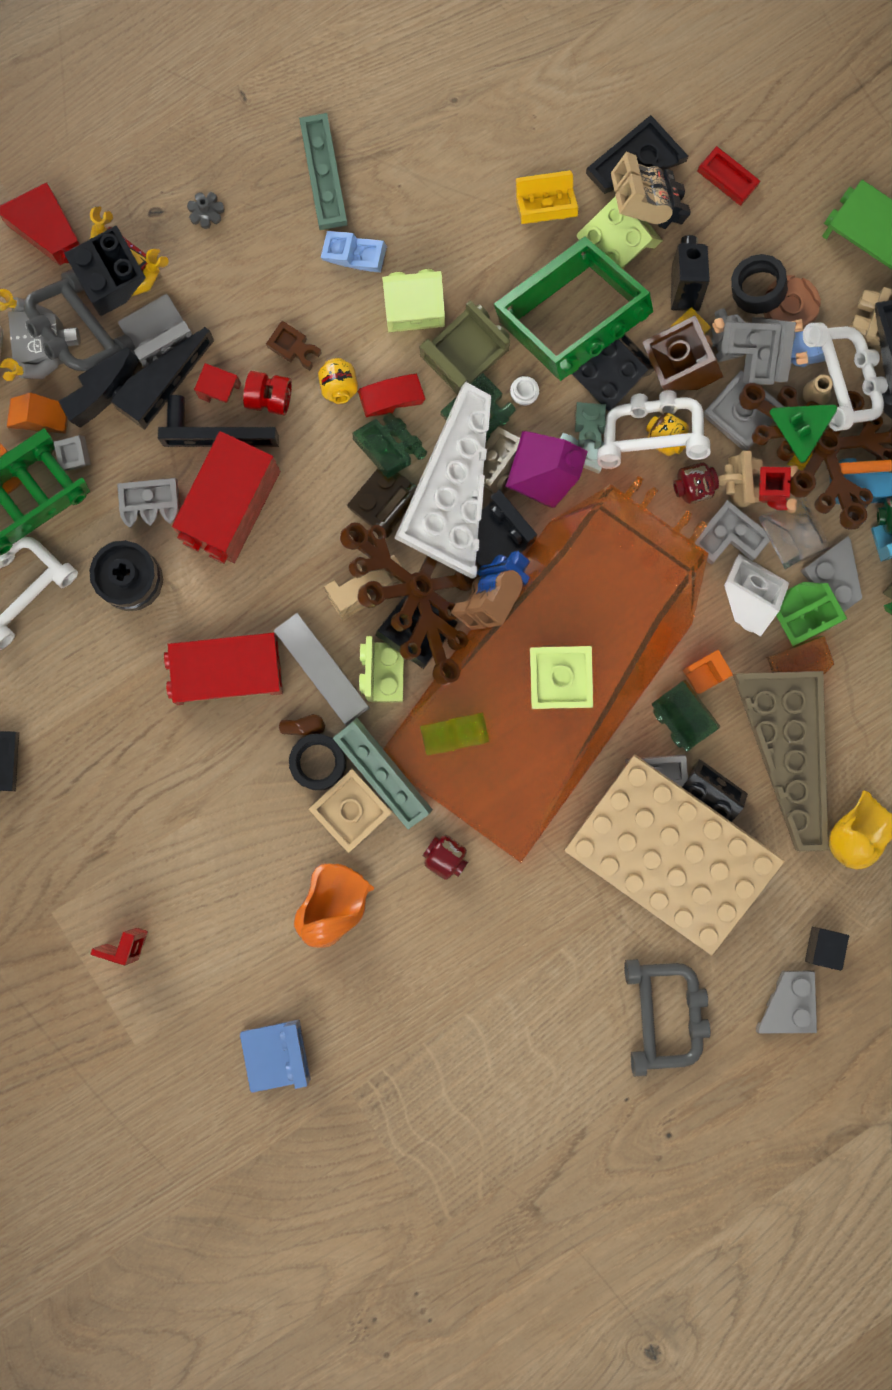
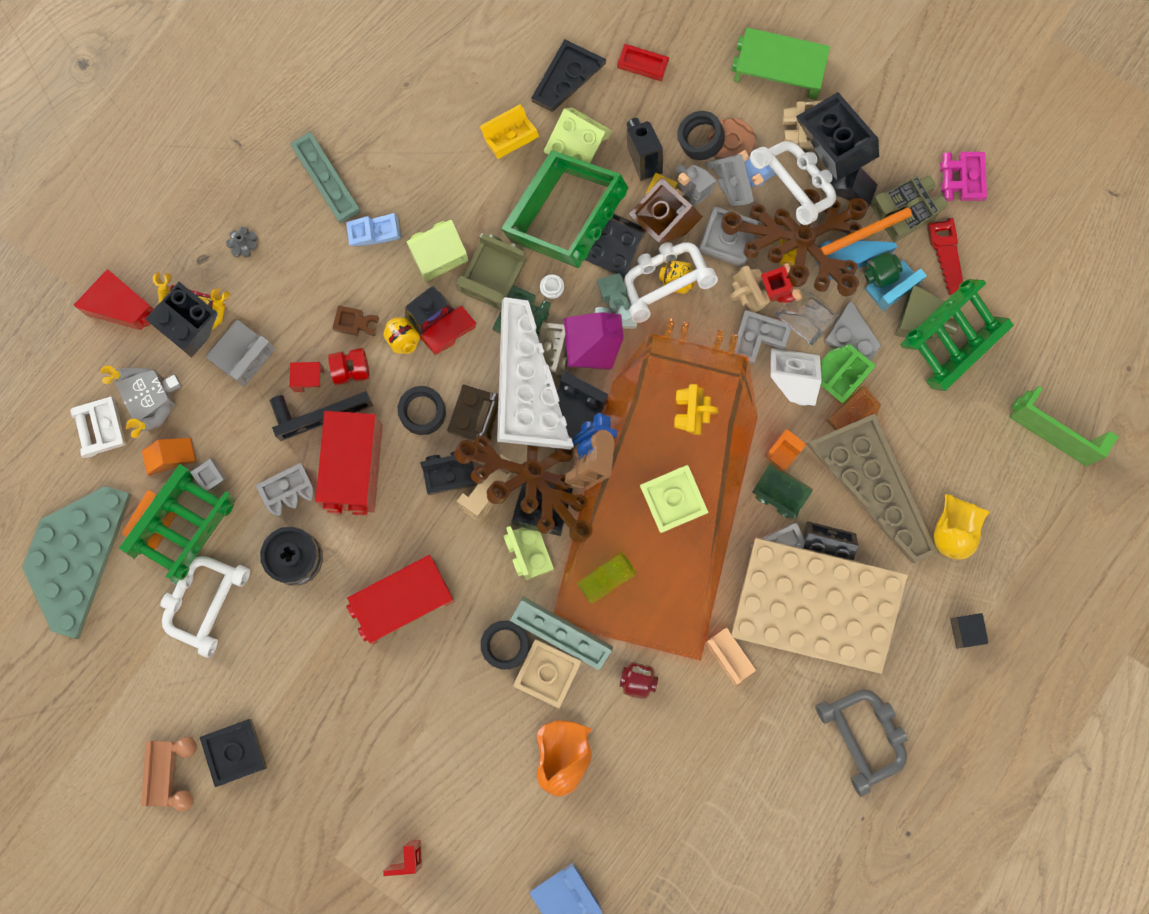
camera: 20 degrees left, 5 degrees down
(56, 346) = (165, 395): dark grey bar -> none
(99, 387) = (211, 413): black slope -> none
(148, 389) = (252, 399): black slope -> none
(304, 726) = (481, 621): reddish brown arm -> none
(318, 452) = (420, 391): none -> black tyre
(321, 669) = (479, 569): light grey slope -> none
(325, 552) = (446, 474): none -> black bracket
(377, 362) = (427, 309): none -> black torso
(383, 449) = (460, 375): clear green plate -> none
(555, 871) = (730, 656): none -> light nougat panel
(627, 589) = (698, 409): none -> yellow hips
(648, 193) = (587, 98): tan hips -> none
(696, 483) = (715, 306): dark red head -> none
(759, 344) = (722, 182): light grey plate -> none
(791, 1005) = (960, 688): light grey wing -> none
(803, 426) = (780, 231): green piece -> none
(812, 392) = (776, 202): tan cone -> none

